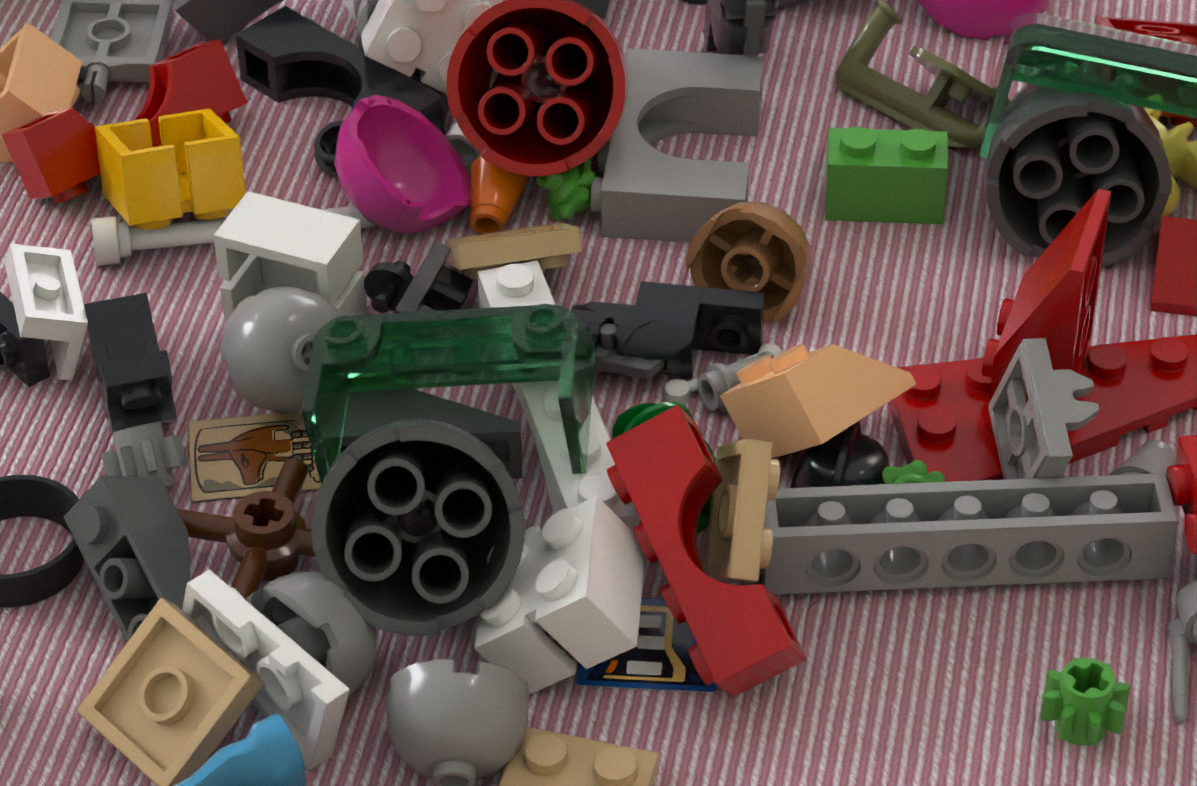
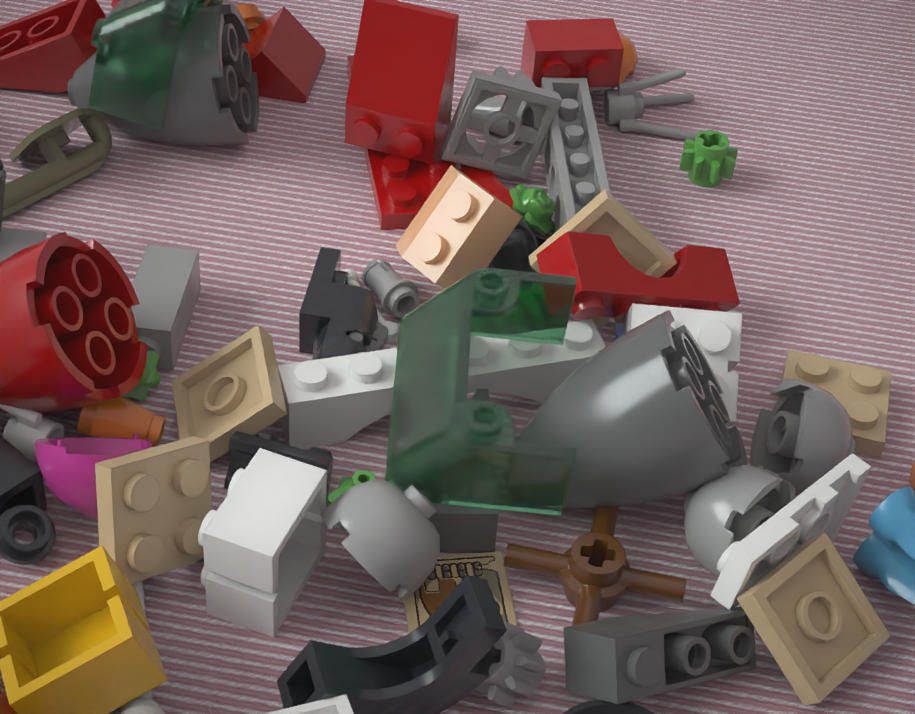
camera: 95 degrees left, 0 degrees up
(323, 170) = (154, 506): none -> tan plate
(753, 251) = (266, 258): medium nougat cylinder -> none
(886, 175) = (140, 191): bright green slope -> none

